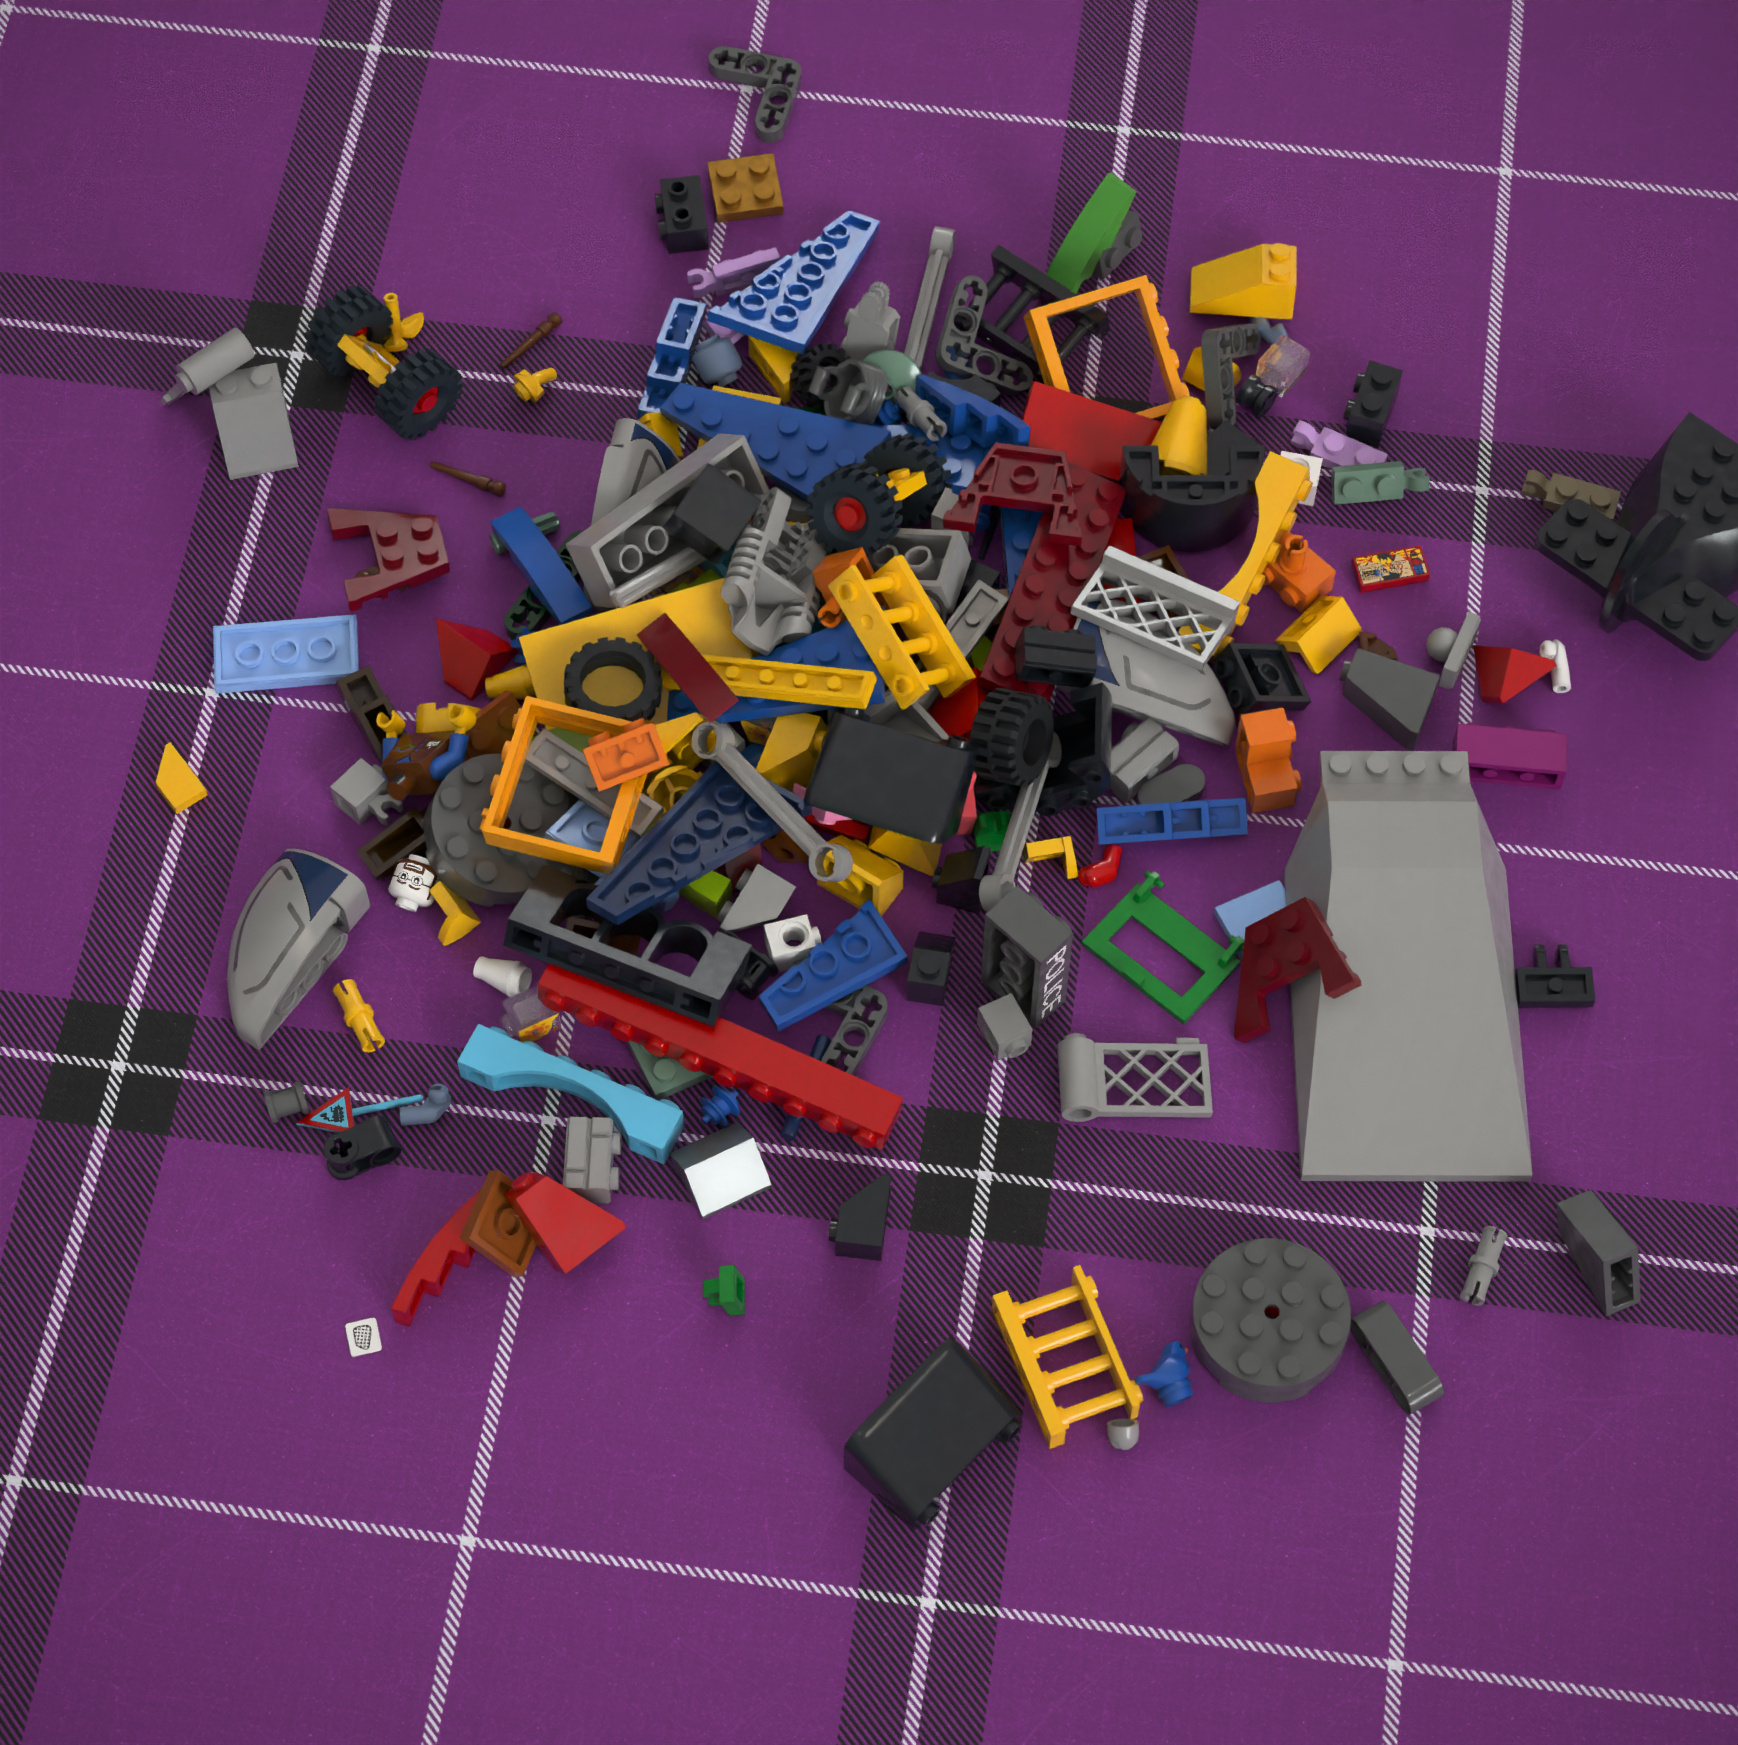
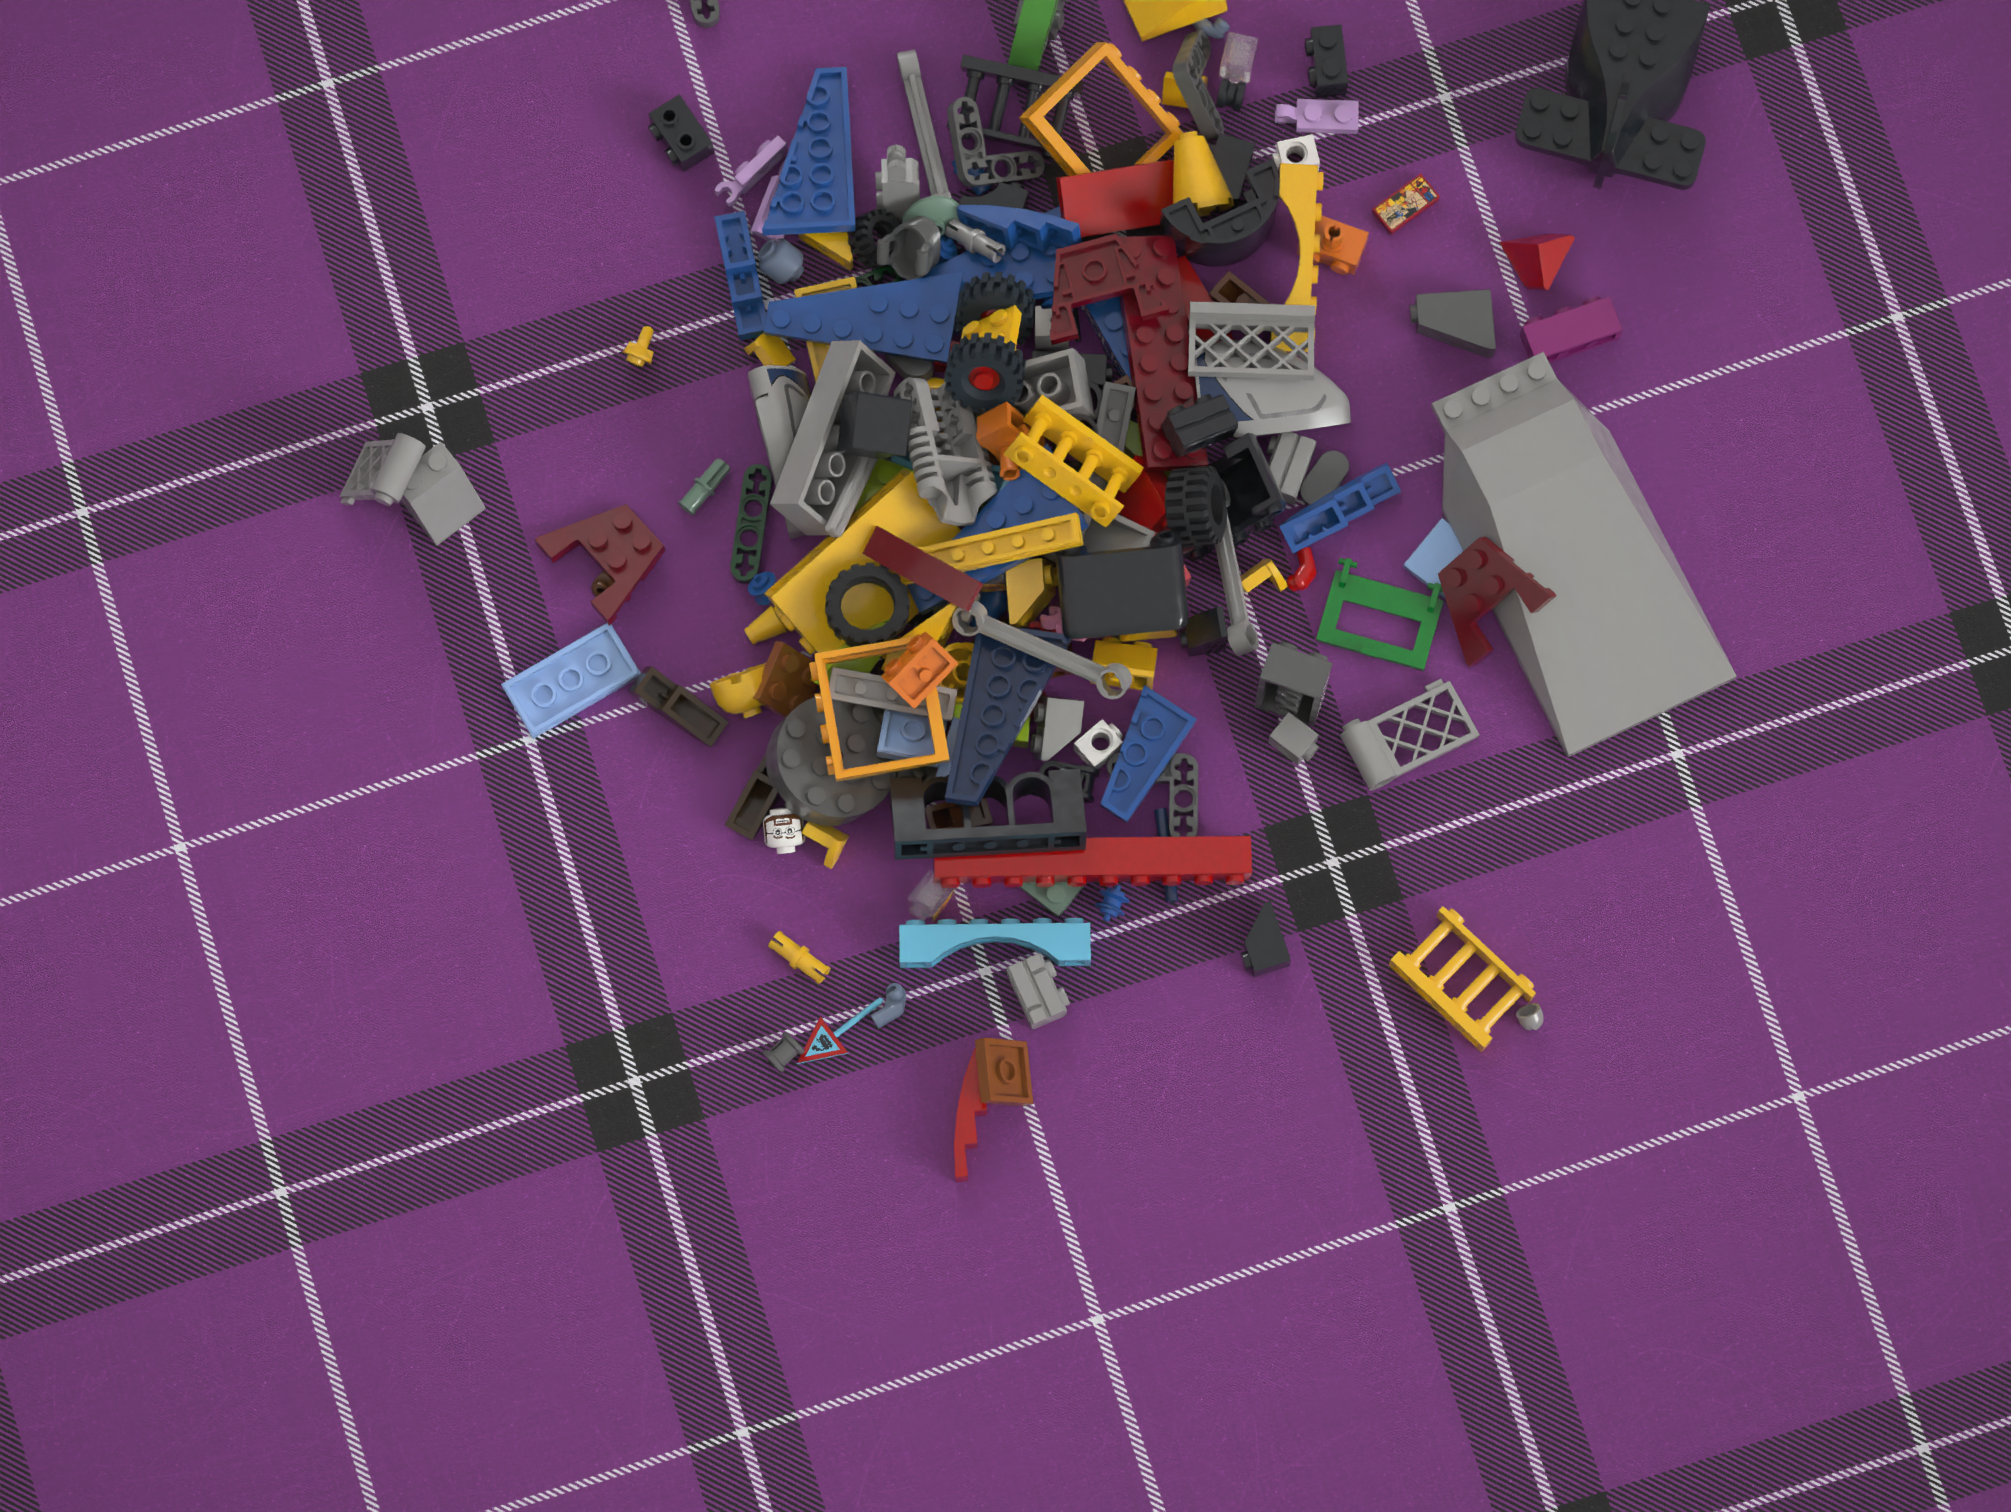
camera: 25 degrees left, 15 degrees up
(178, 781) = (548, 829): yellow tile -> none
(289, 939) = (709, 921): light grey panel -> none
(351, 337) = (476, 382): black plate -> none
(363, 793) = (702, 773): light grey brick -> none
(363, 1148) = (863, 1057): black piece -> none
(363, 1337) = (938, 1204): white sticker -> none
(406, 328) = (499, 345): yellow plant -> none
(422, 760) = (741, 730): torso -> none
(470, 656) = (721, 616): red slope -> none
(482, 482) = (646, 455): reddish brown piece -> none
(505, 975) = (892, 873): white cone -> none
(541, 566) = (742, 516): blue slope -> none
(542, 330) = (619, 294): reddish brown piece -> none
(560, 1220) = (1046, 1051): red slope -> none
(721, 1169) = (1136, 950): slope -> none
(727, 1290) = (1191, 1045): green tile -> none
(745, 188) = (716, 82): pearl gold plate -> none
(929, 1433) = (1397, 1086): black windscreen -> none
(930, 968) = (1213, 713): black slope -> none
(991, 829) = (1205, 578): green tile -> none
(1170, 1375) = (1544, 957): blue animal -> none
(1260, 678) = (1352, 354): black plate -> none
(1264, 759) = (1388, 426): orange brick -> none
(1270, 1319) = (1602, 851): dark grey piece -> none
(1321, 632) = (1376, 287): yellow panel -> none
(1370, 643) = (1426, 282): reddish brown tile -> none
(1375, 482) = (1362, 132): sand green plate -> none
(1396, 1357) = (1700, 866): dark grey beam -> none
(1453, 648) = (1483, 256): light grey tile -> none
(1483, 1265) = (1731, 764): light grey pin -> none
(1554, 986) = (1687, 513): black hinge -> none
(1560, 674) = (1568, 225): white arm -> none
(1565, 488) = (1521, 72): dark tan plate -> none
(1601, 1251) = (1811, 715): dark grey slope -> none

